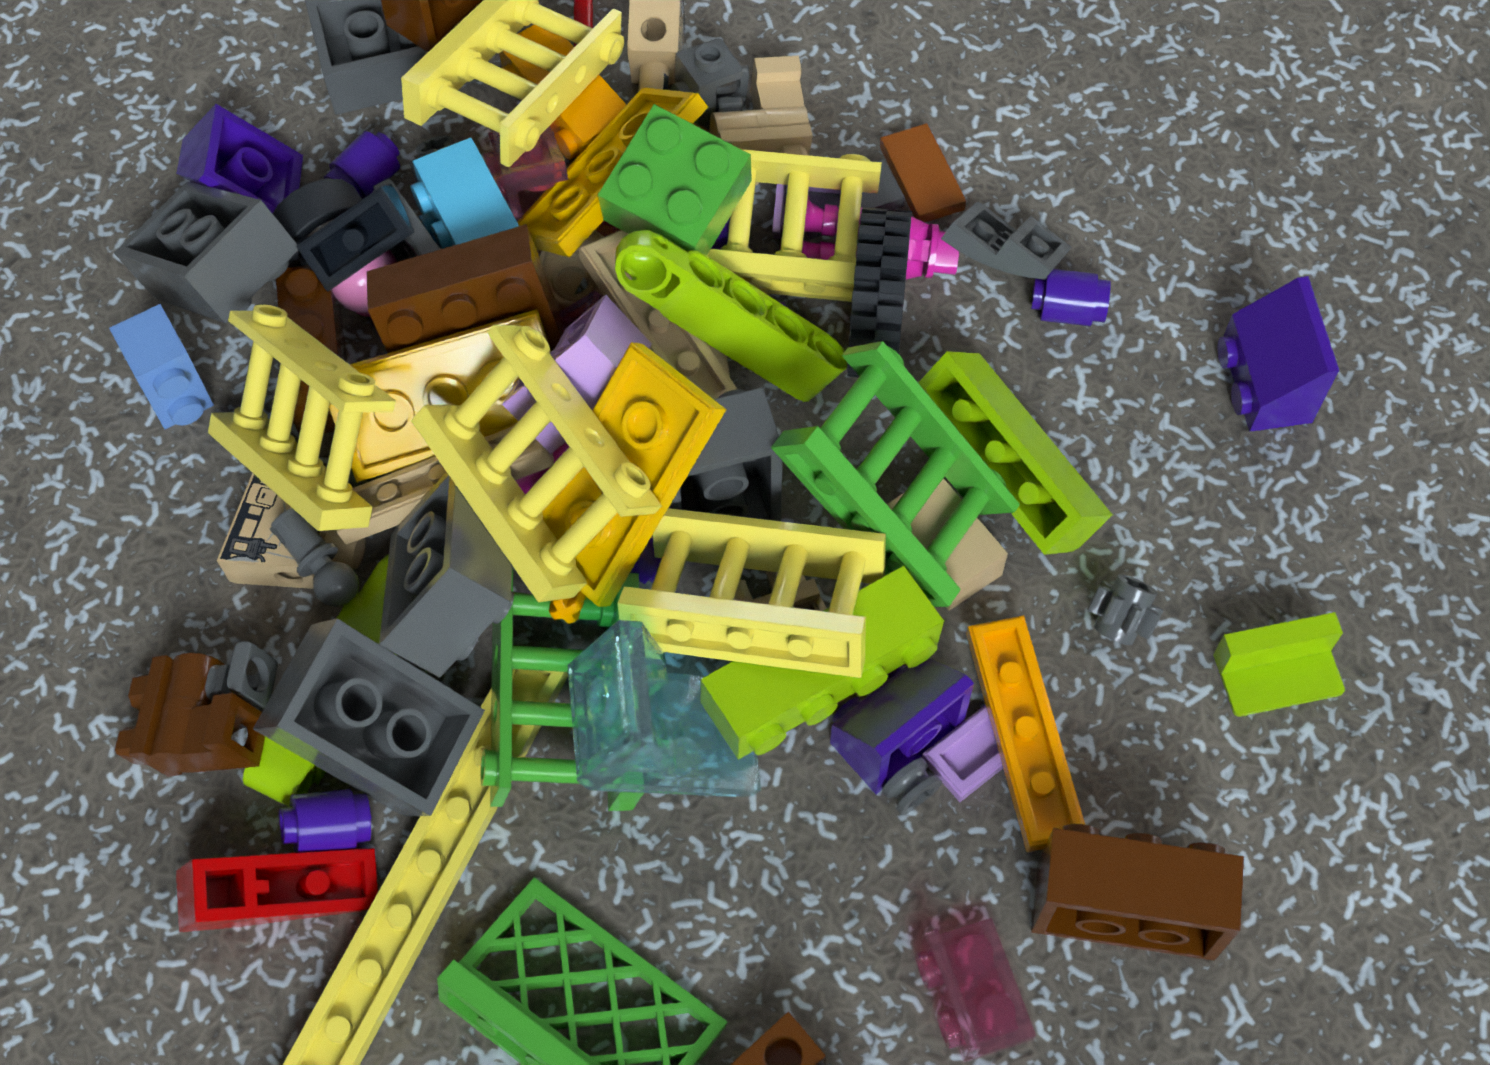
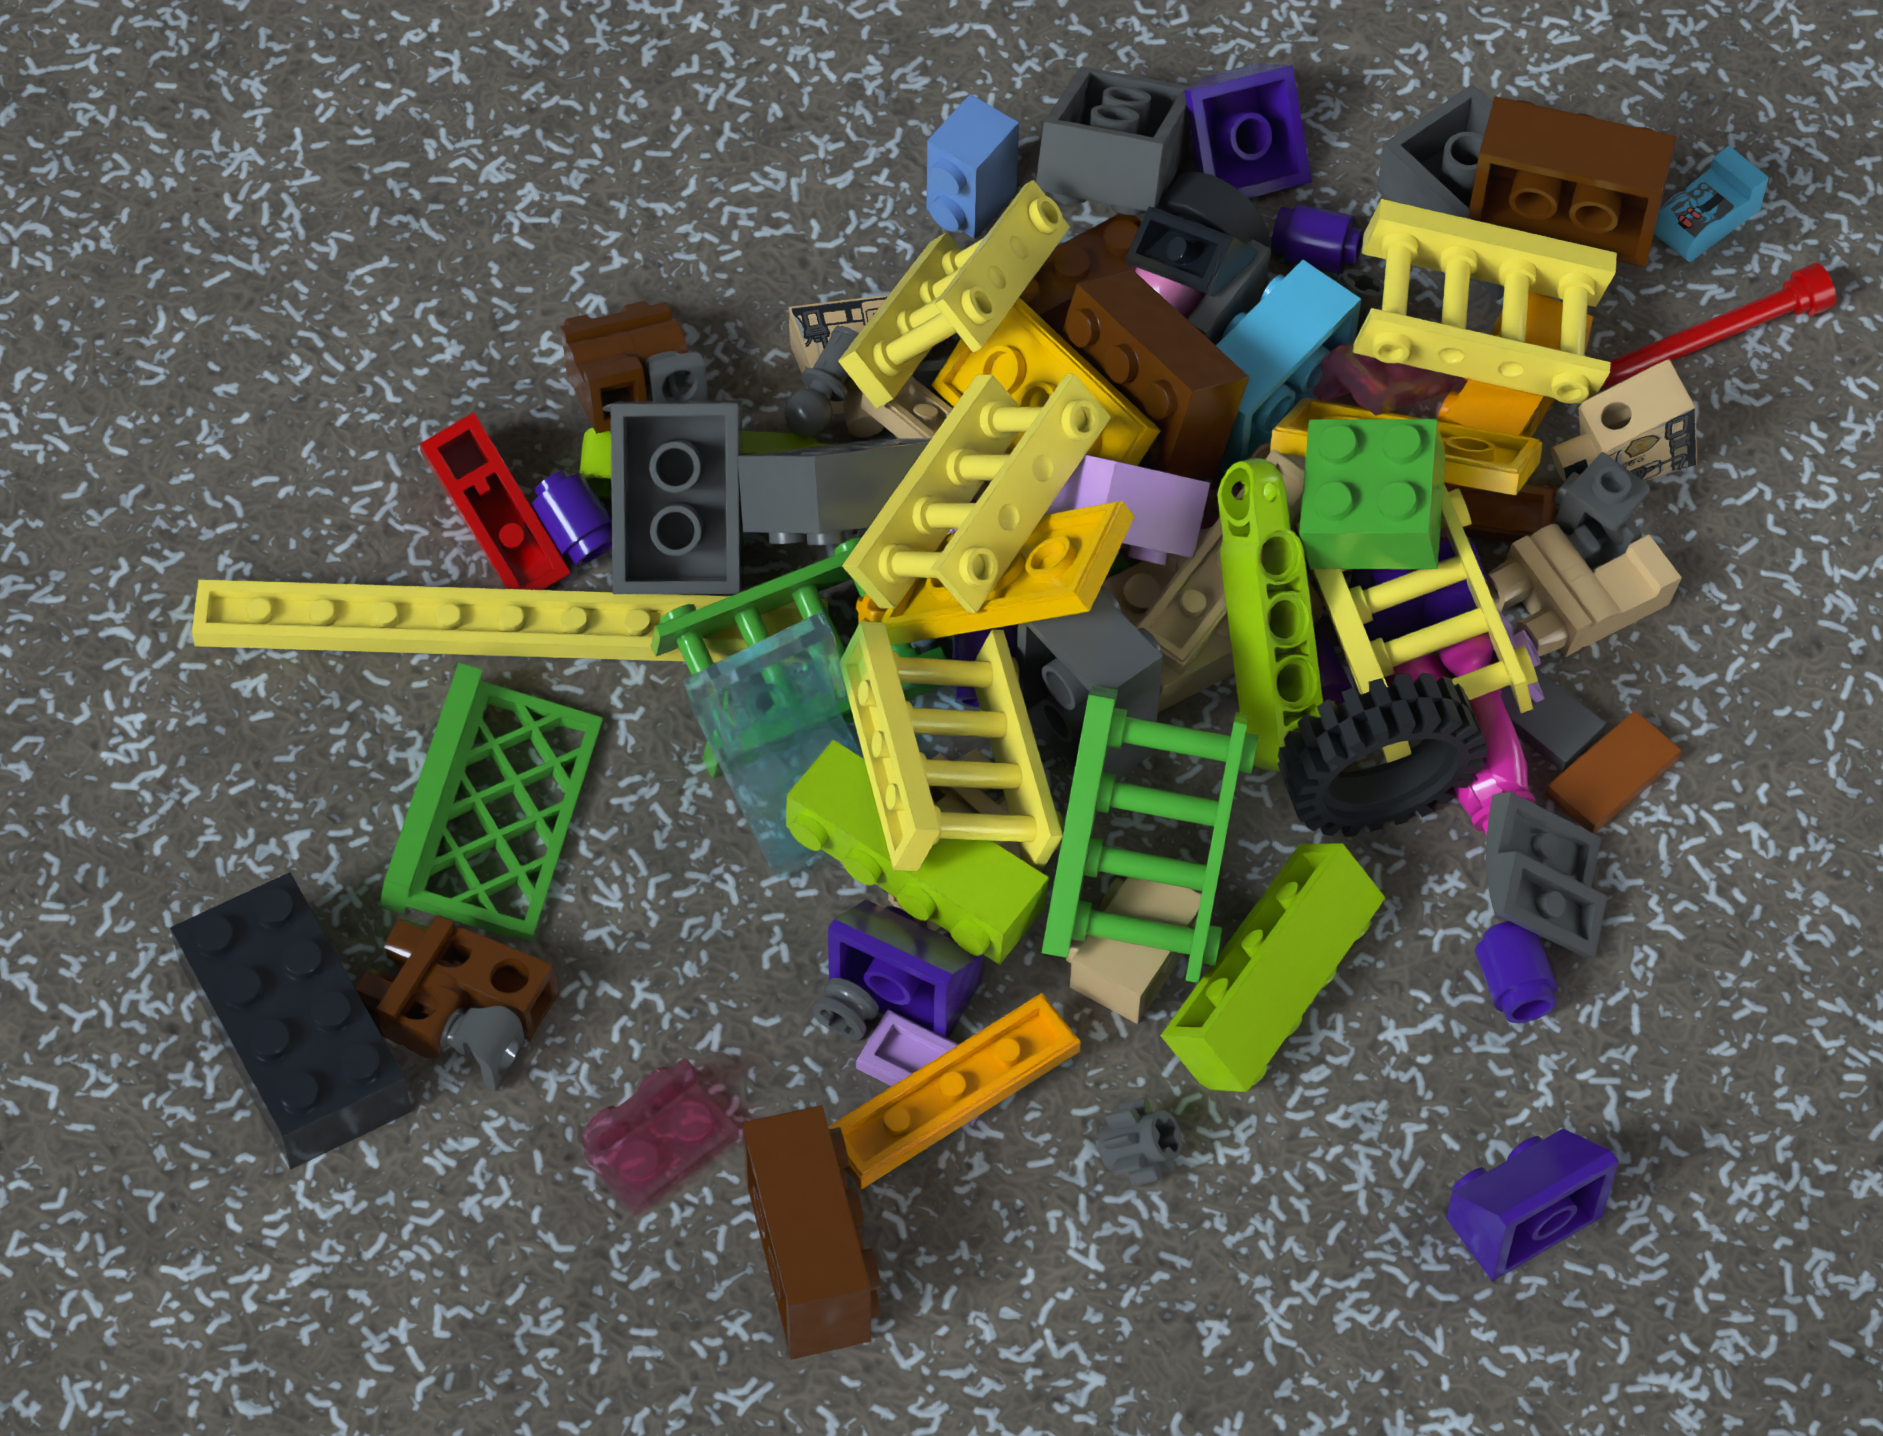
camera: 65 degrees right, 5 degrees down
(1280, 664) = (1154, 1323): lime panel -> none

